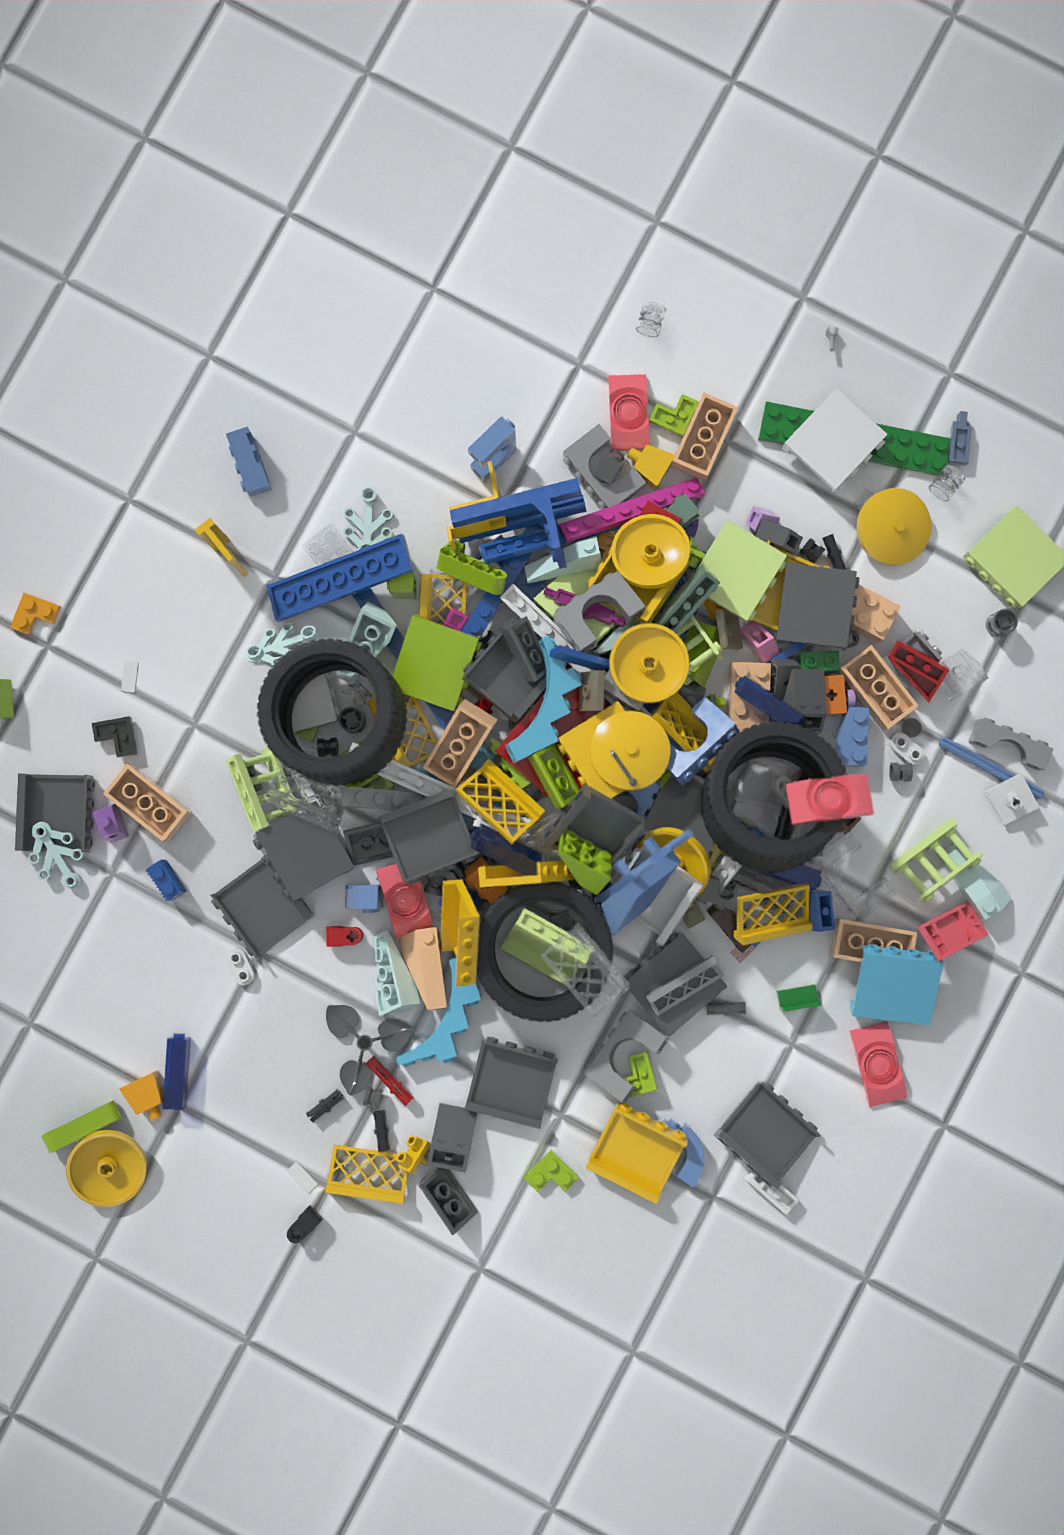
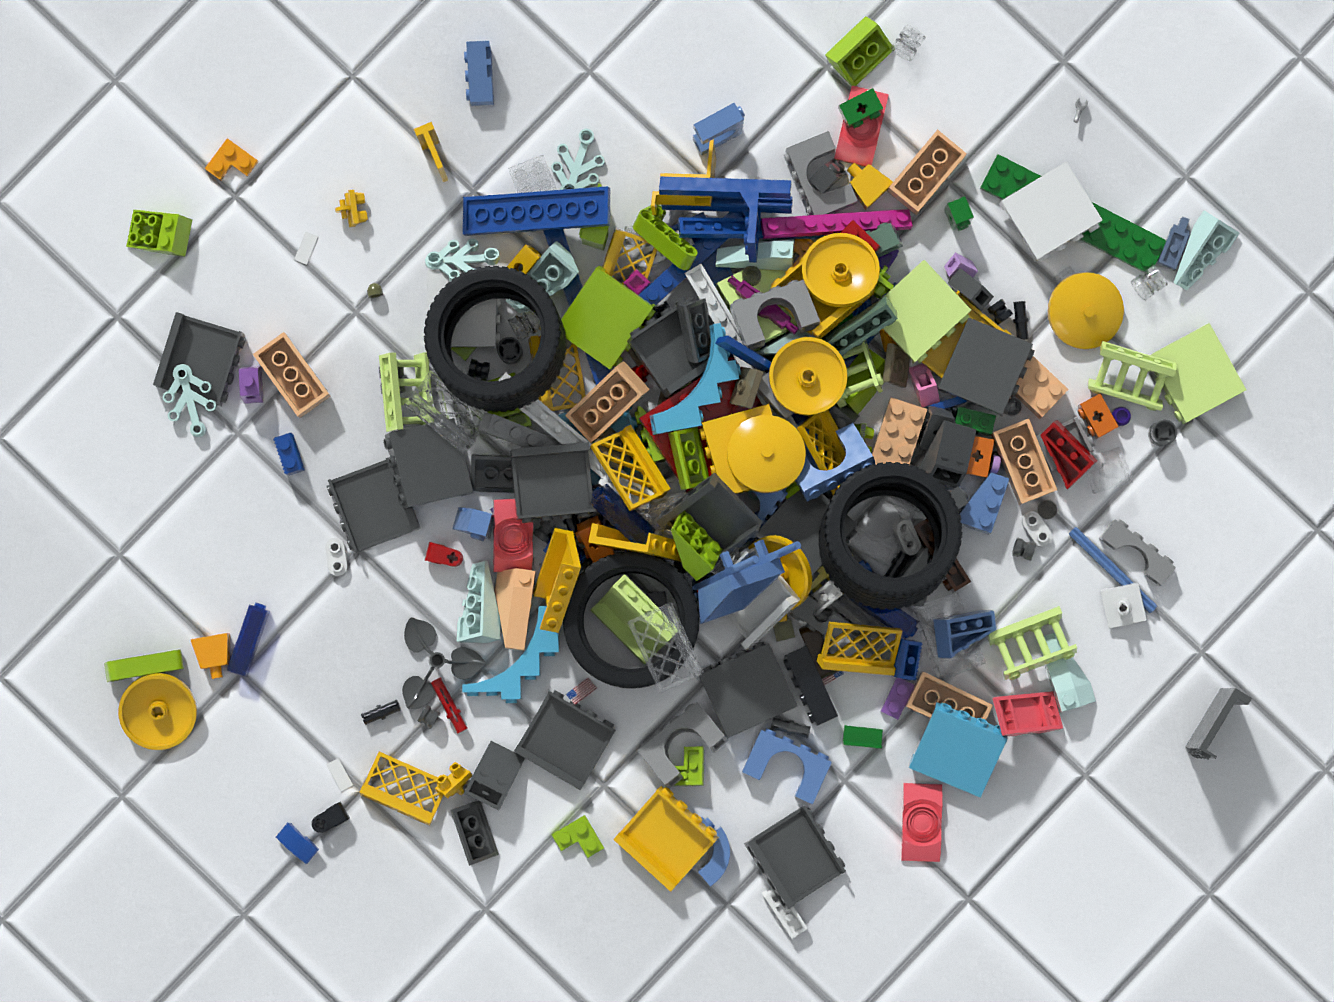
camera: 10 degrees right, 0 degrees up
(121, 731) = (284, 299): pearl dark grey plate -> none
(160, 618) = (349, 209): none -> yellow hips
(206, 699) = (374, 290): none -> olive hinge
(279, 1259) = (296, 843): none -> blue slope
(342, 625) = (527, 257): none -> yellow torso
(381, 1130) = (428, 750): black pin -> none
(513, 1030) = (581, 691): none -> sticker
(565, 581) = (751, 275): none -> clear smoke tile
(607, 340) = (859, 51): none -> lime slope
(628, 383) = (866, 100): none -> green brick
(632, 781) = (760, 483): dark grey hinge -> none
(675, 420) = (904, 148): lime plate -> none
(681, 979) = (753, 686): light grey fence -> none
(710, 1031) = (814, 765): none -> medium blue arch
(736, 964) = (811, 686): none -> black brick
(747, 467) = (959, 214): none -> green brick
(767, 701) = (911, 444): clear blue brick -> none
(820, 950) = (897, 698): none -> medium lavender plate
(829, 799) = (937, 550): coral slope -> none
(865, 868) = (961, 630): none -> medium blue wedge
(944, 626) = (1098, 406): none -> orange brick
(950, 559) = (1128, 358): none -> yellowish green fence
(956, 618) = (1122, 416): none -> dark purple plate
(990, 426) = (1205, 244): none -> light aqua wedge

